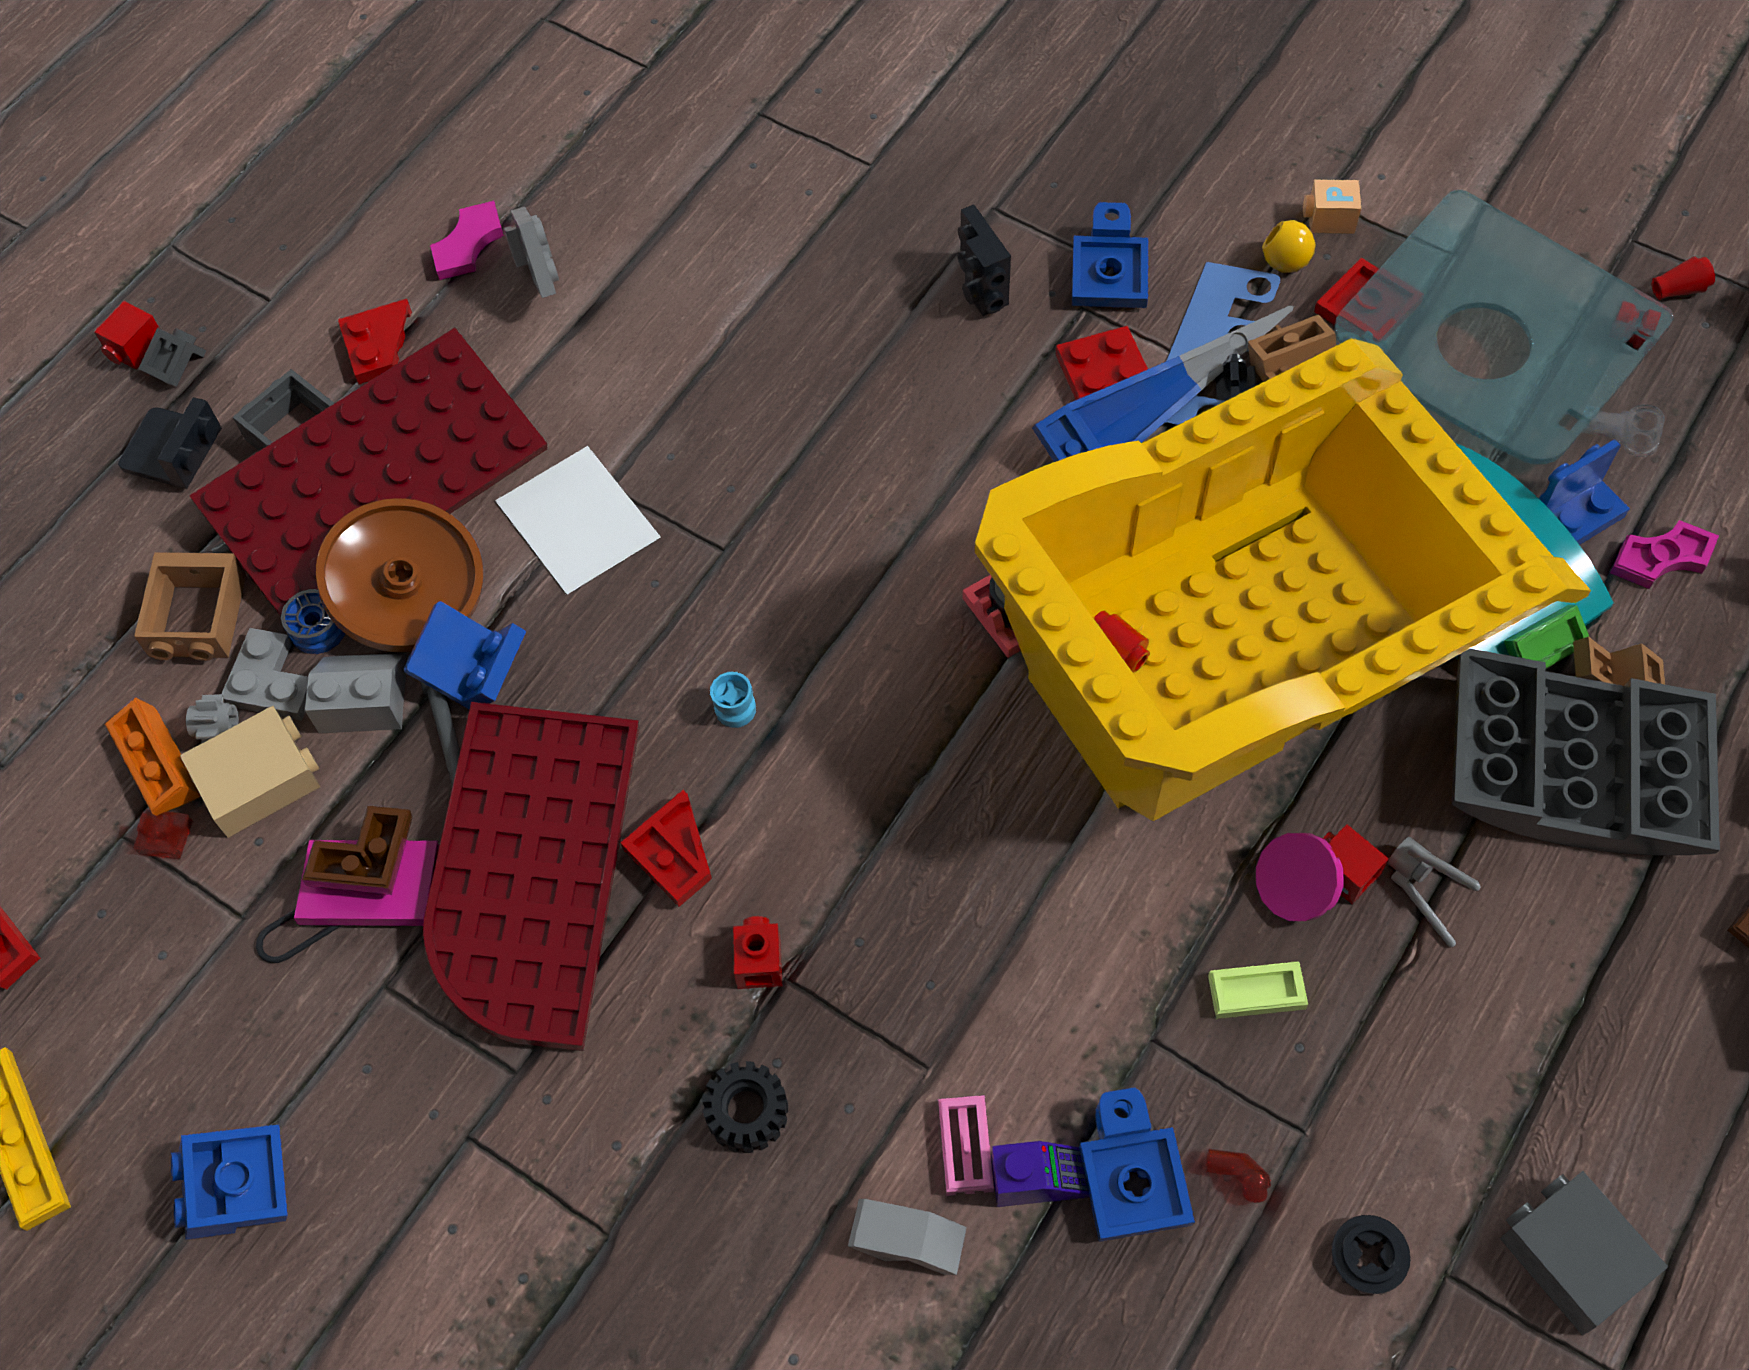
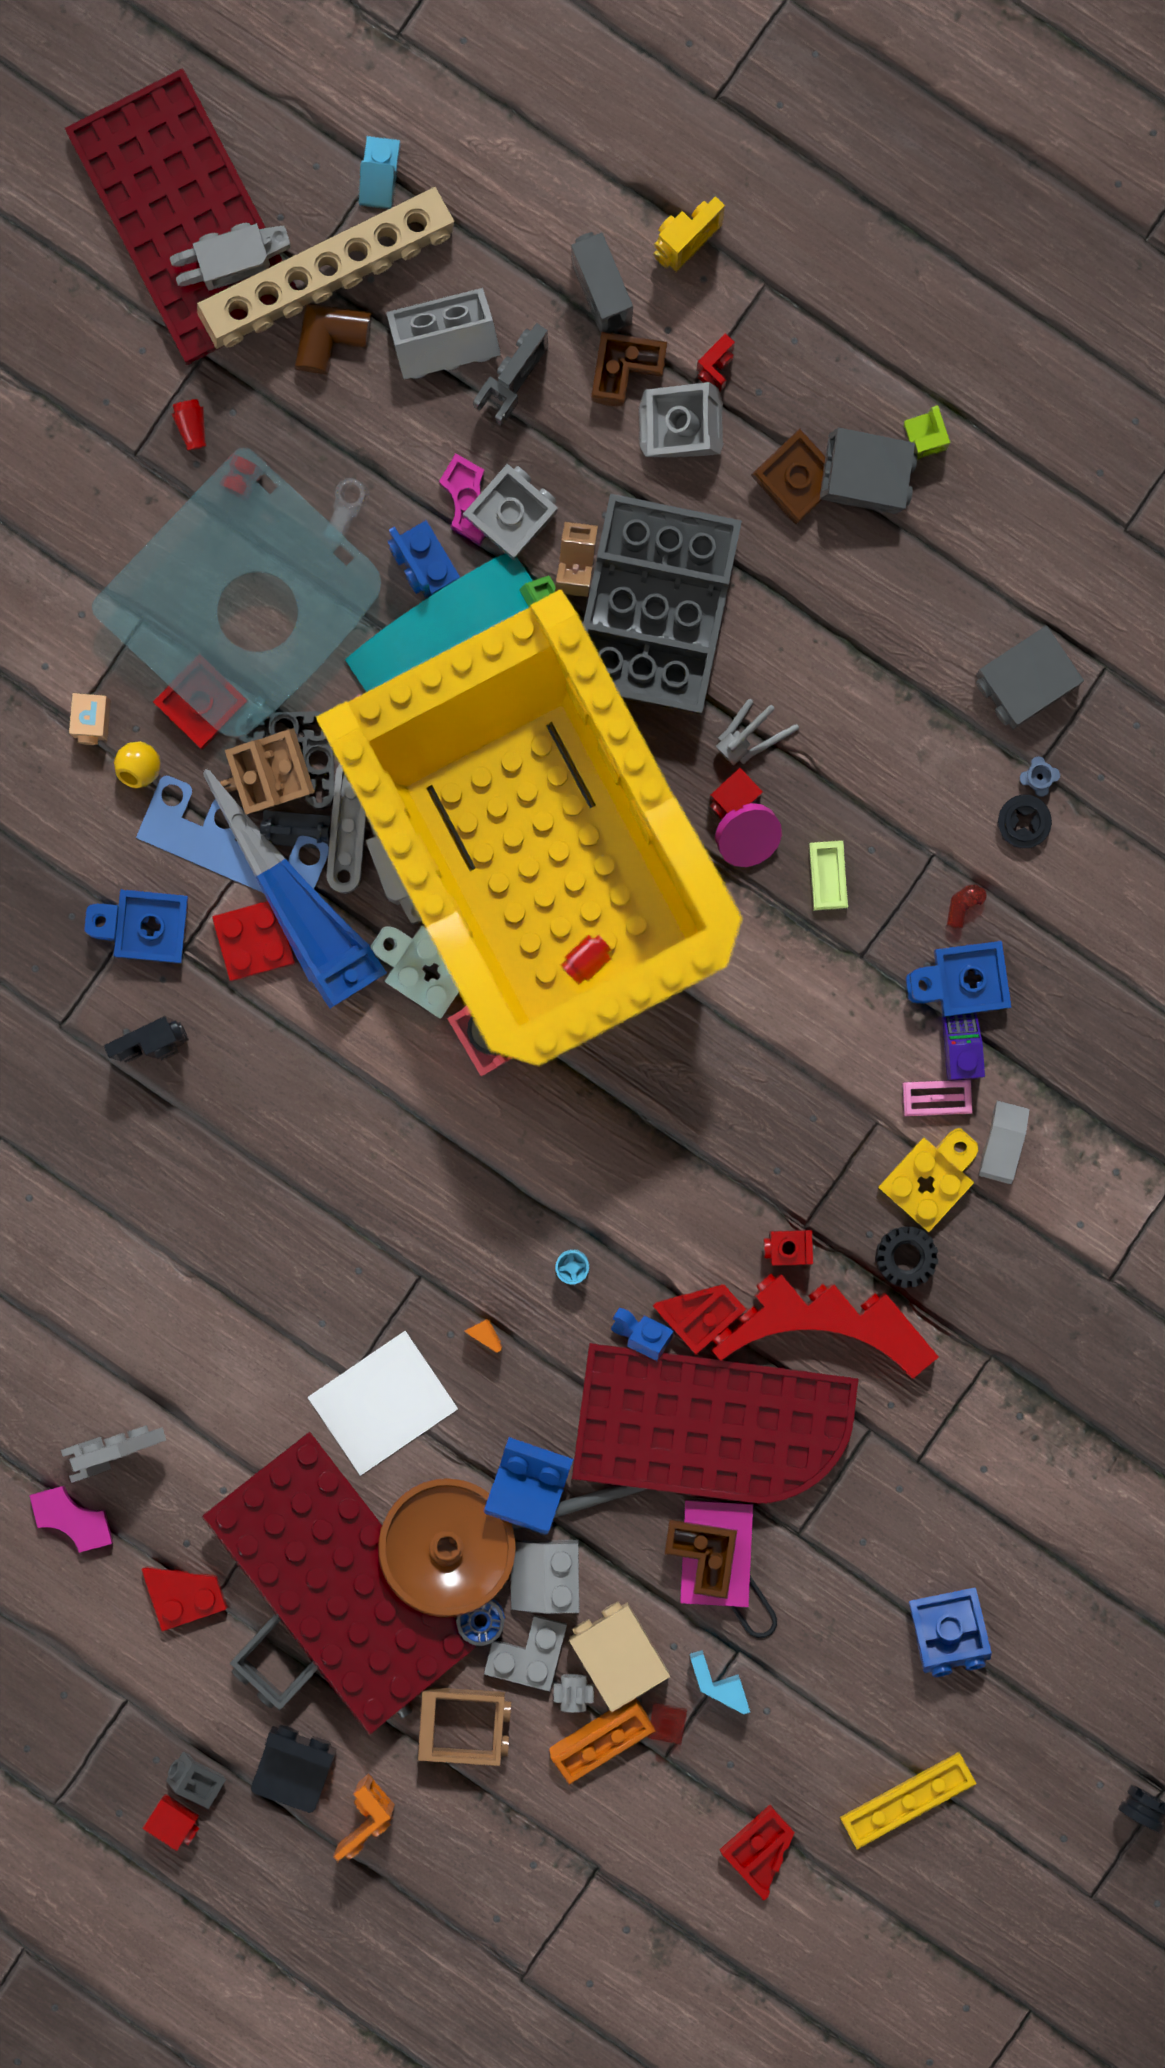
camera: 90 degrees left, 25 degrees up
(110, 506) = (370, 1801): none -> orange bracket
(188, 897) = (727, 1691): none -> medium azure slope
(644, 783) = (644, 1336): none -> blue plate
(650, 610) = (485, 1334): none -> orange slope
(651, 1071) = (784, 1310): none -> red arch
(871, 1154) = (944, 1166): none -> yellow plate
(1452, 1270) = (1039, 766): none -> sand blue plate
(1665, 591) = (511, 510): none -> light grey plate

